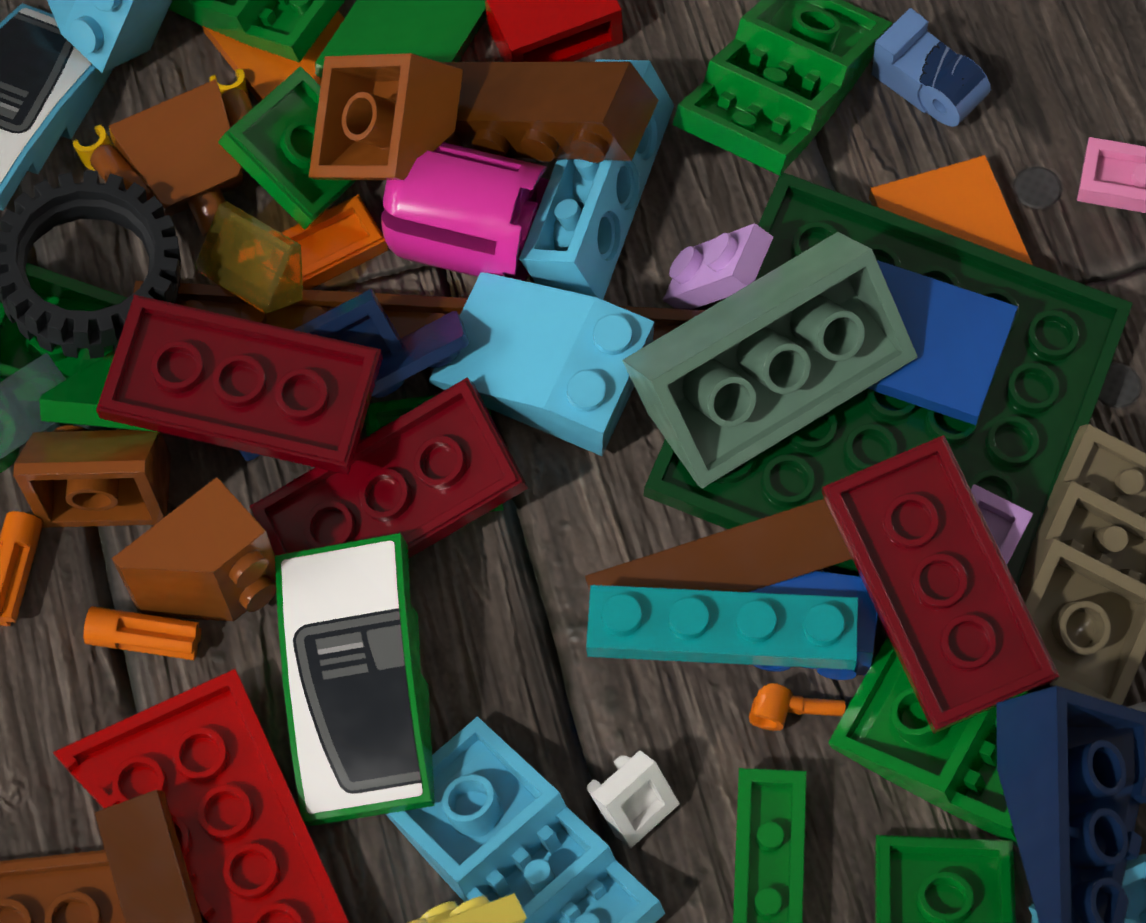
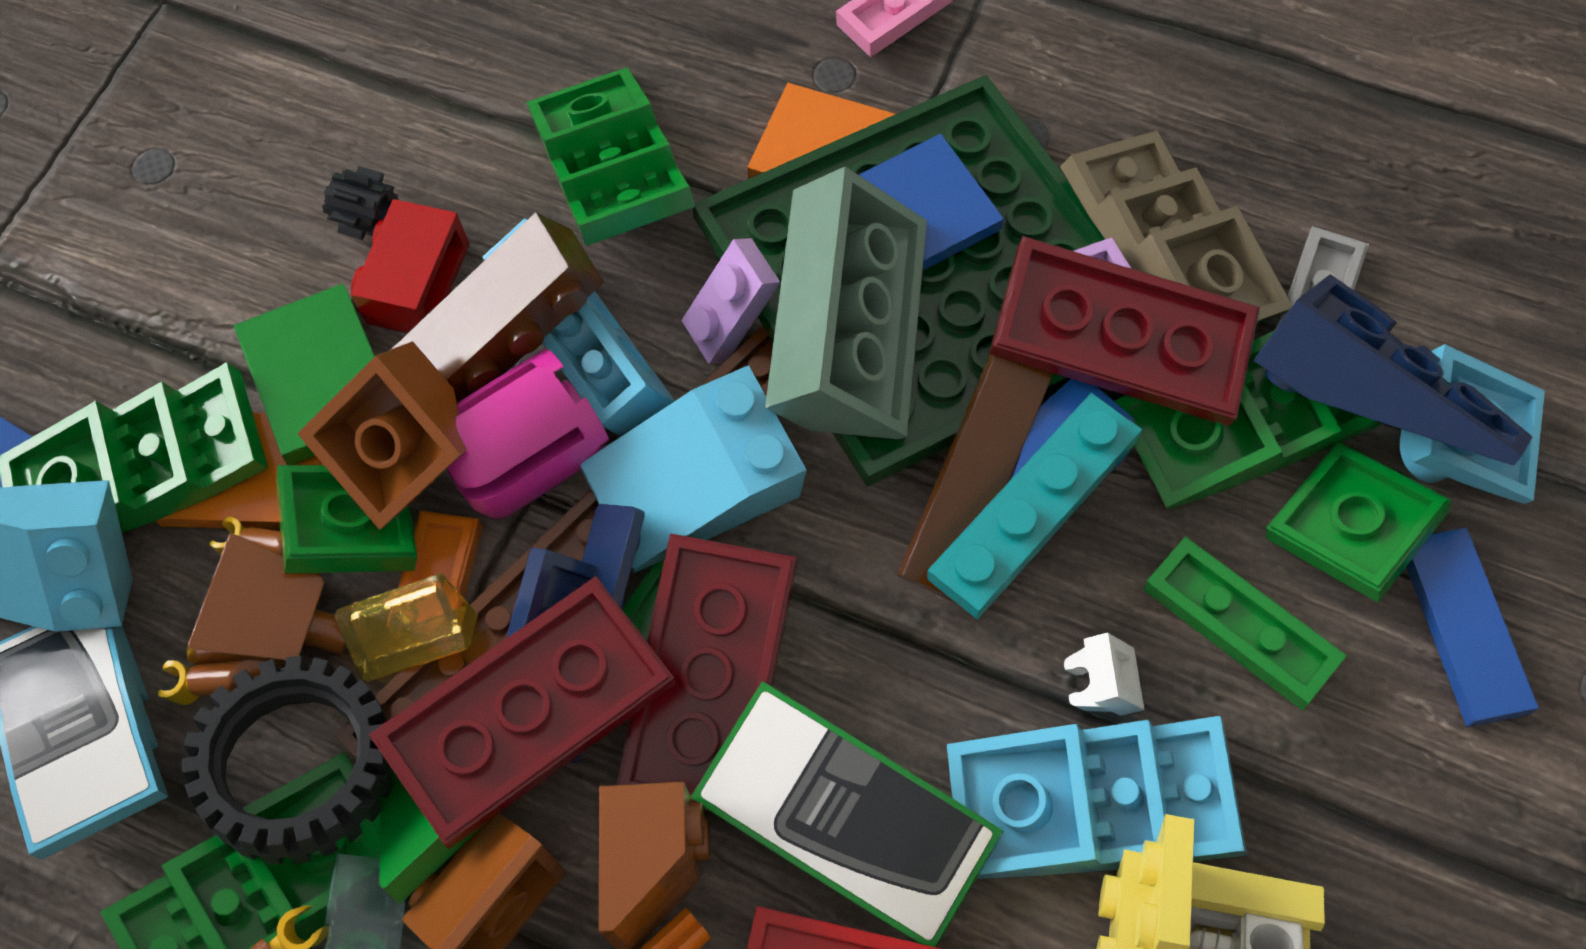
camera: 50 degrees left, 0 degrees up
(775, 701) = (1105, 523): orange hand -> none
(928, 71) = (693, 68): medium blue leg -> none

